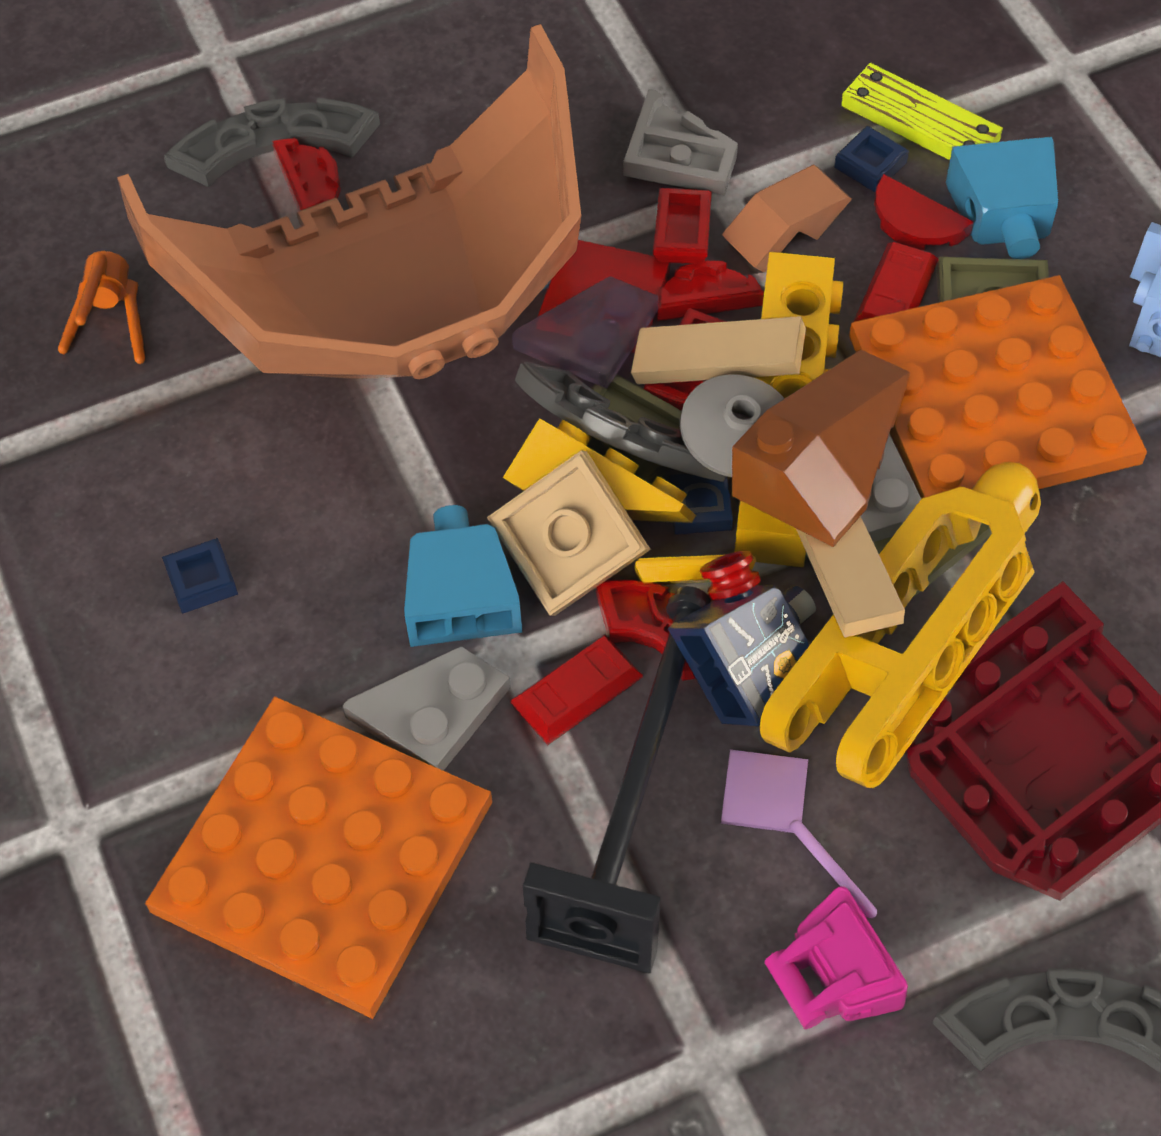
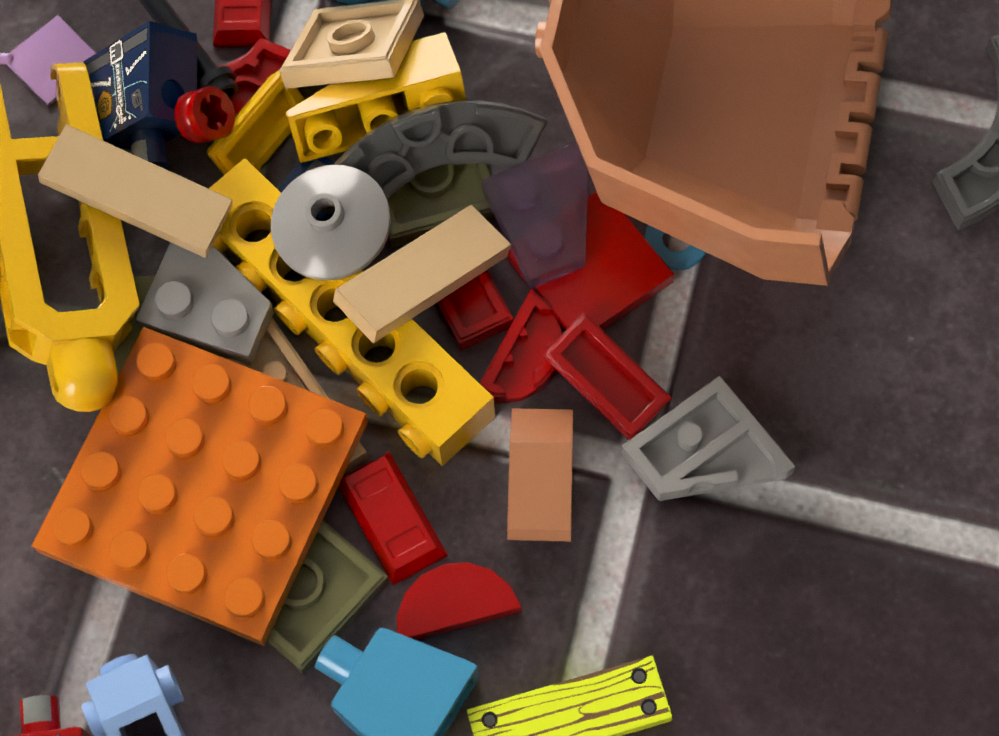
camera: 130 degrees right, 10 degrees up
(308, 172) = (928, 125): red tile -> none
(821, 447) = (231, 240): dark orange wedge -> none
(870, 157) = (557, 624): dark blue tile -> none

